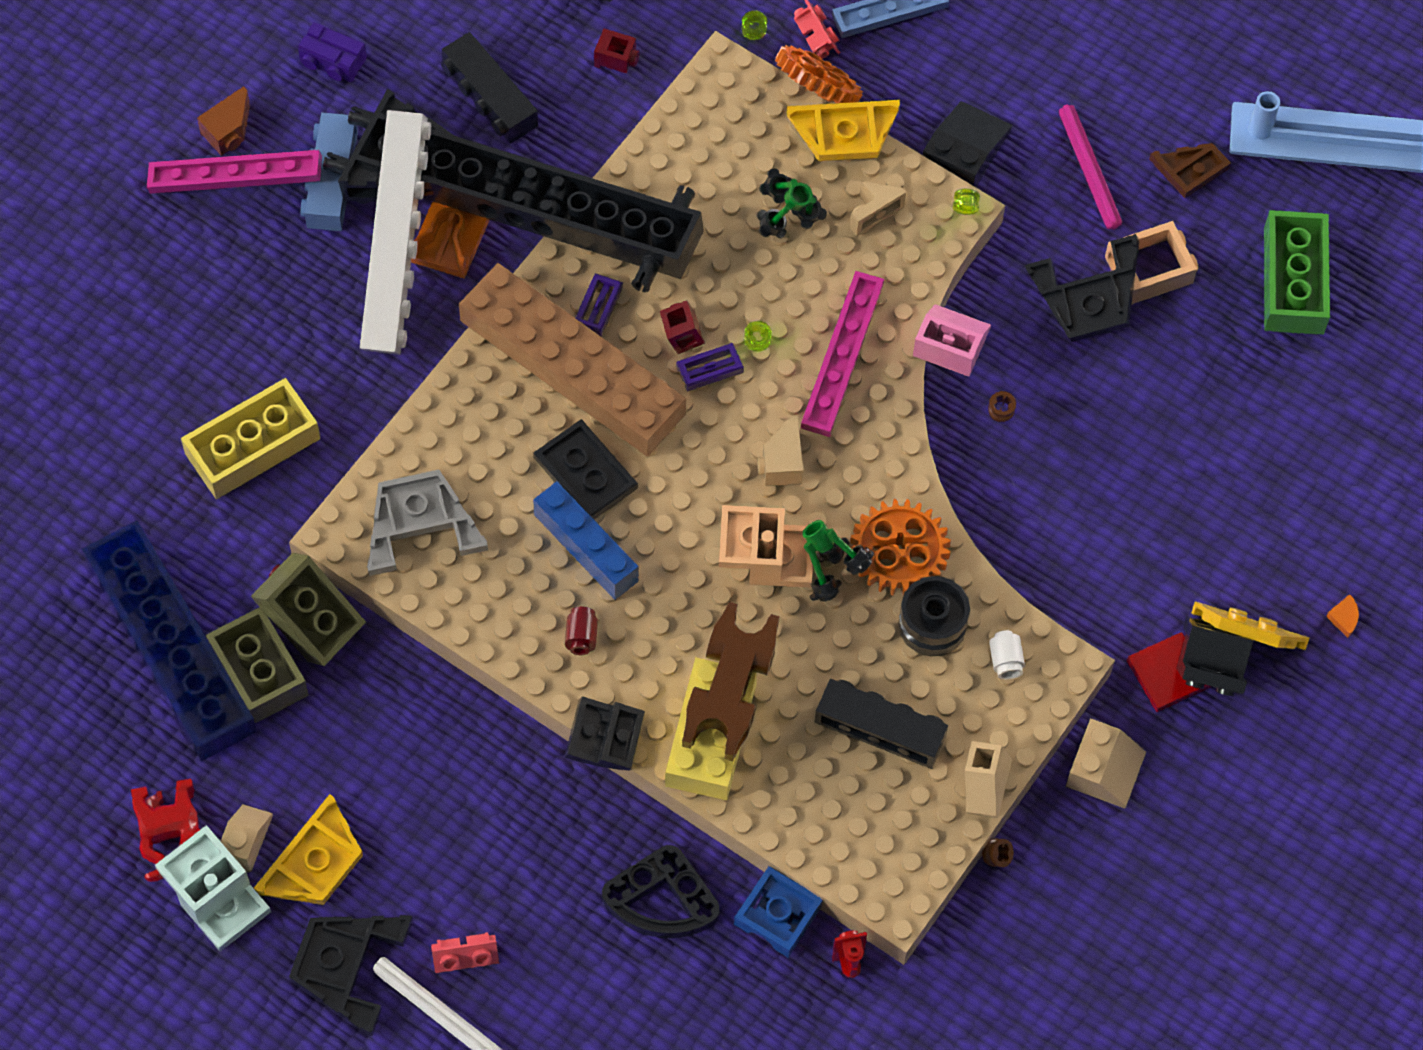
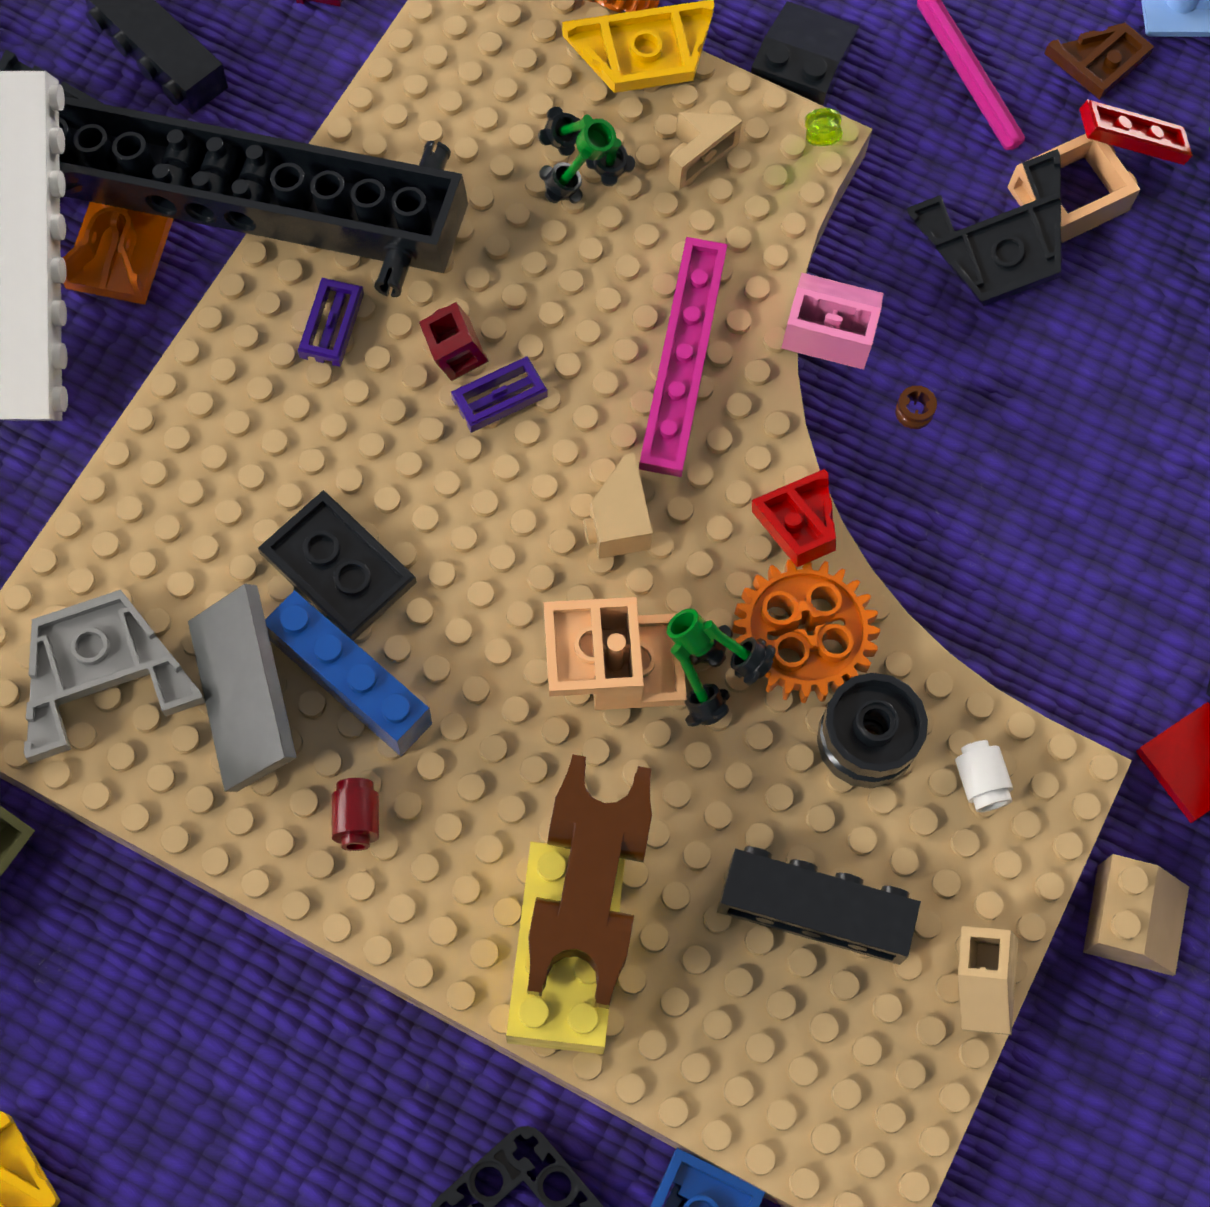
camera: 10 degrees left, 5 degrees up
(514, 541) = (241, 689): none -> tile
(572, 359) = (302, 404): medium nougat brick -> none
(604, 734) = (407, 973): black slope -> none
(764, 331) = (553, 351): clear neon green bush -> none
(907, 471) = (800, 518): none -> red wing
(1004, 852) = (1010, 1075): reddish brown bush -> none
(1203, 226) = (1135, 132): none -> red tile

